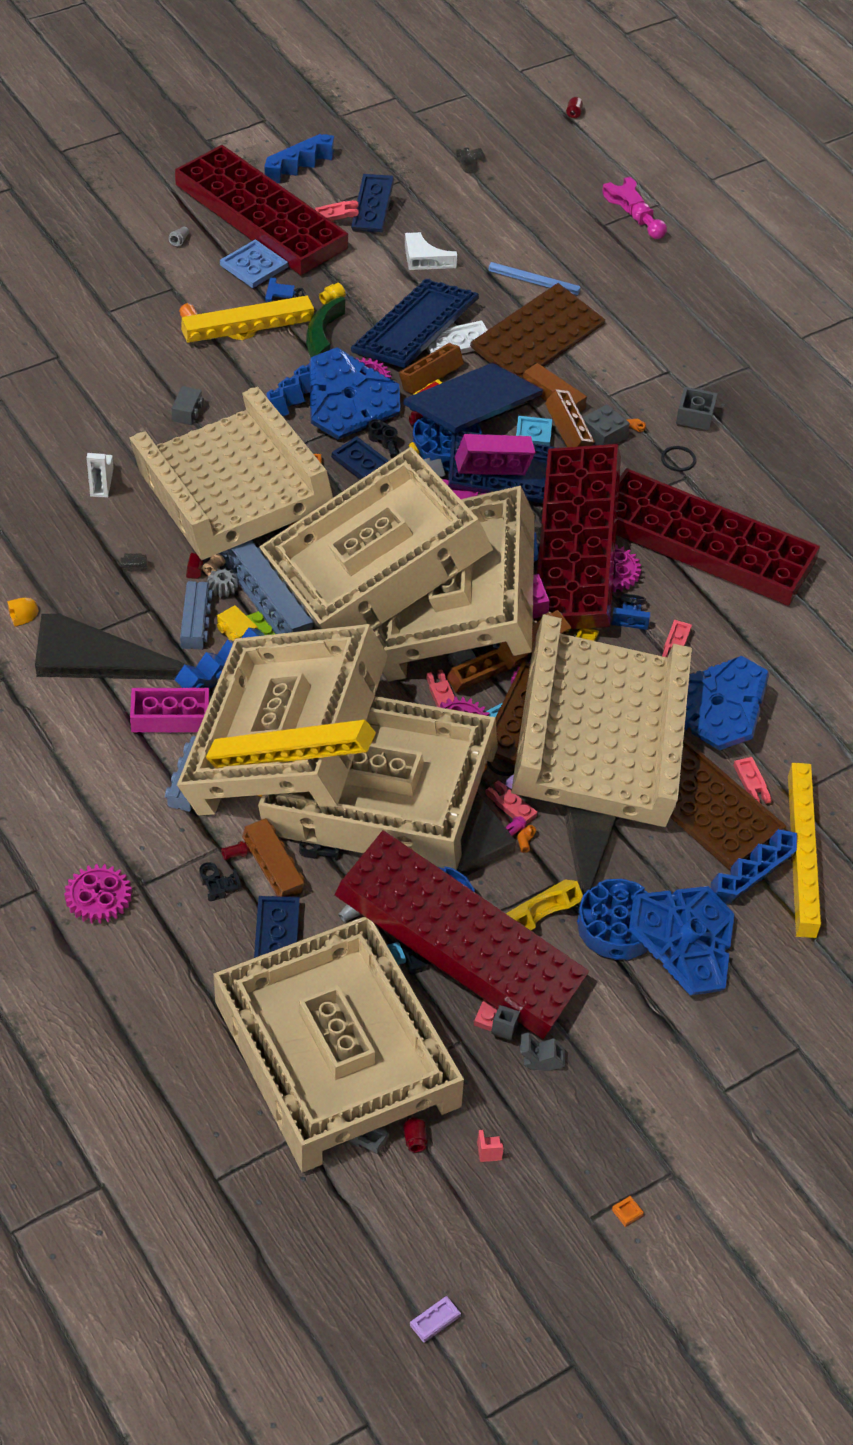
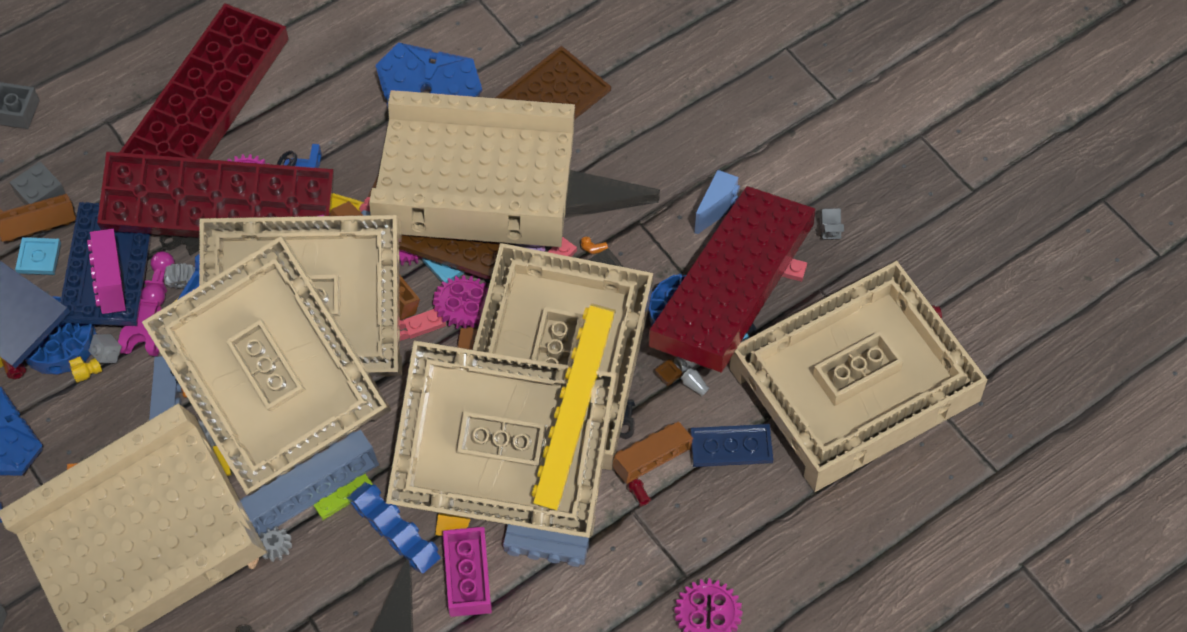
camera: 90 degrees left, 10 degrees up
(194, 566) = (249, 577): dark red brick -> none
(195, 615) = (324, 566): sand blue brick -> none
(218, 885) = (681, 504): black piece -> none
(234, 623) = (340, 522): yellow brick -> none
(358, 457) = (86, 414): dark blue plate -> none
(383, 432) = (39, 402): black beam -> none
(435, 1319) = (1091, 292): lavender plate -> none
(489, 1148) = (927, 261): coral panel -> none
(505, 1023) = (809, 248): dark grey brick -> none
(516, 825) = (581, 253): dark pink pin -> none
(558, 897) = (662, 212): yellow arch -> none
(571, 938) = (717, 200): none -> medium blue slope
(606, 919) = (682, 167): blue brick -> none
(627, 1211) = (962, 164): orange tile -> none
(637, 424) = (29, 161): orange arm -> none
(677, 635) = (341, 128): coral hinge -> none
(680, 448) = (76, 115): black piece -> none
(692, 930) = (698, 117): blue plate -> none
(752, 779) = (508, 70): coral hinge -> none
(762, 862) = (609, 63): blue brick -> none
(805, 858) = (584, 33): yellow brick -> none

